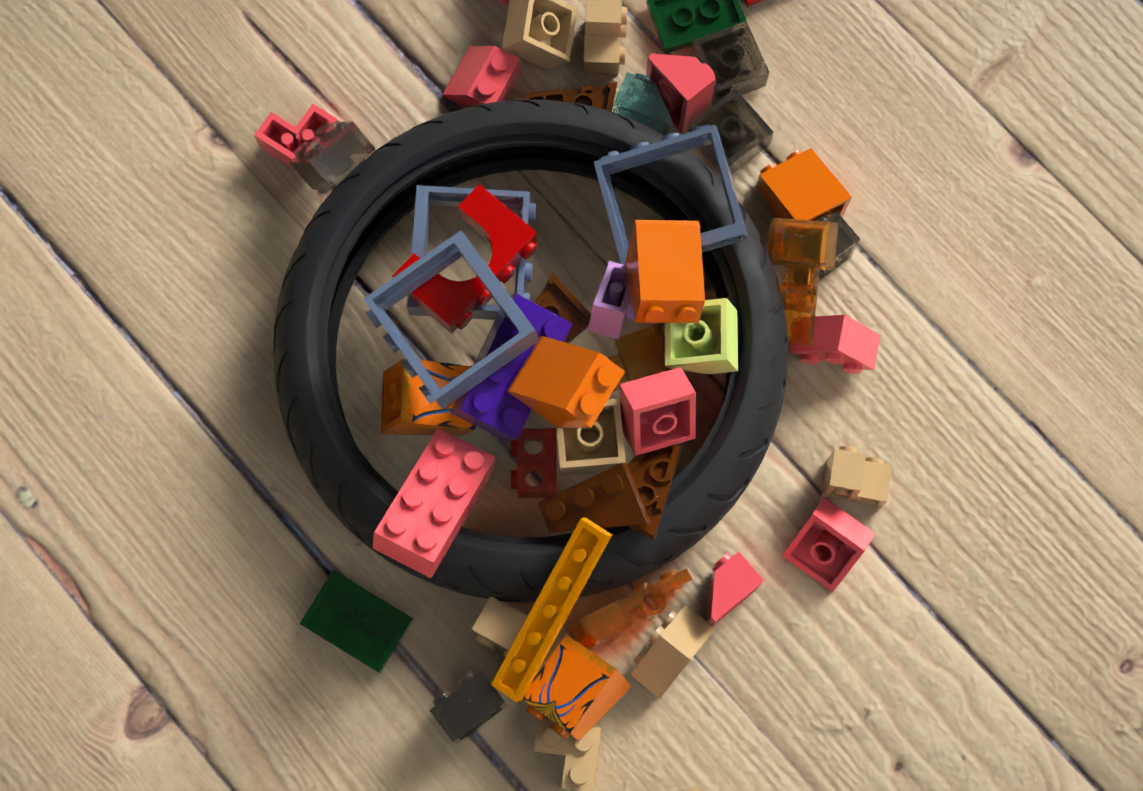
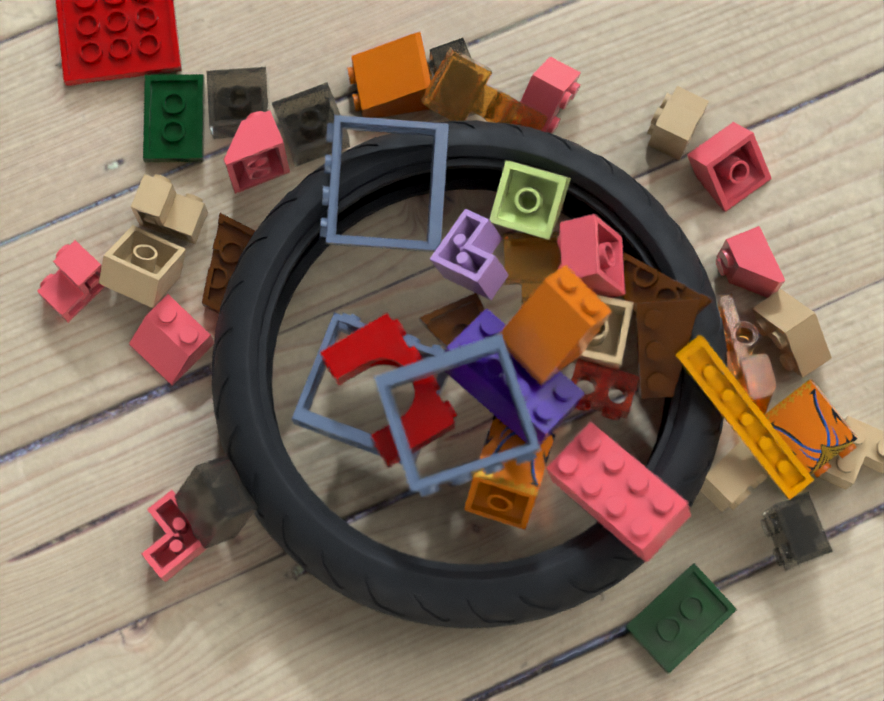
camera: 75 degrees left, 0 degrees up
(642, 102) = (258, 193): clear light blue slope -> none
(665, 271) = (468, 205): orange slope -> none

